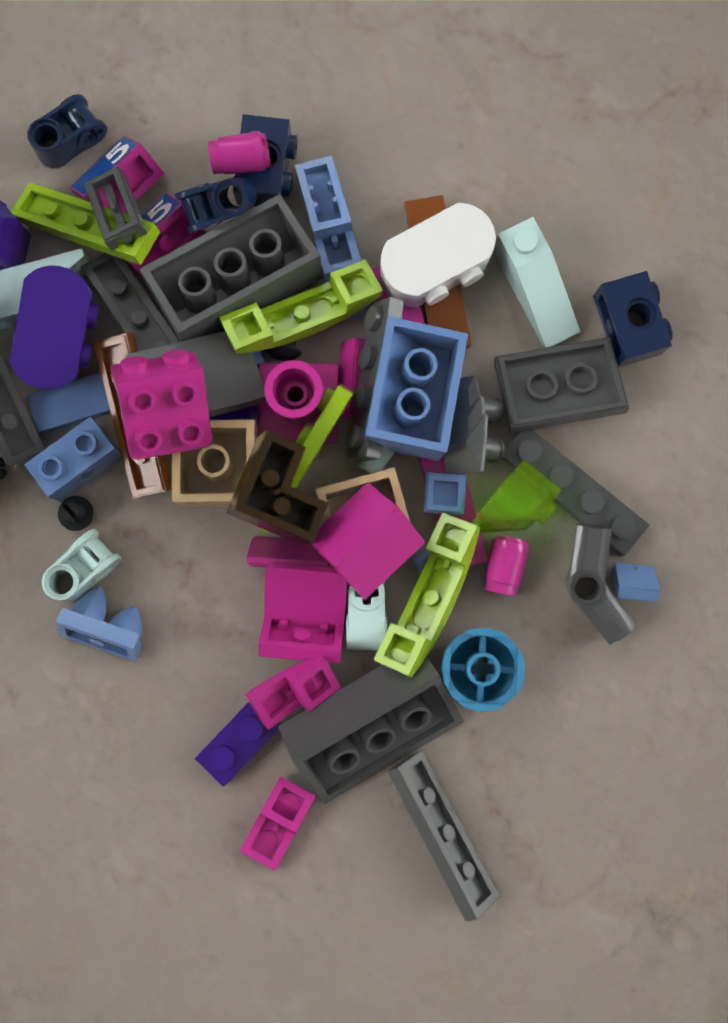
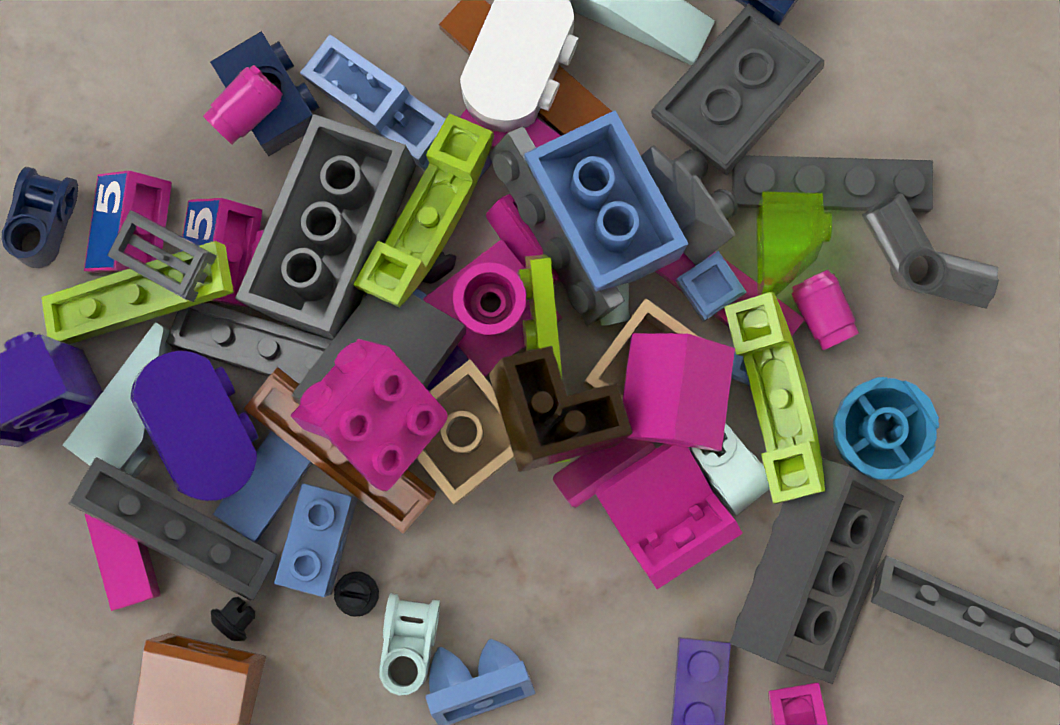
camera: 35 degrees left, 0 degrees up
(210, 204) = (250, 179): dark blue piece -> none
(302, 684) = (721, 583): dark pink slope -> none
(635, 582) = (963, 227): medium blue tile -> none

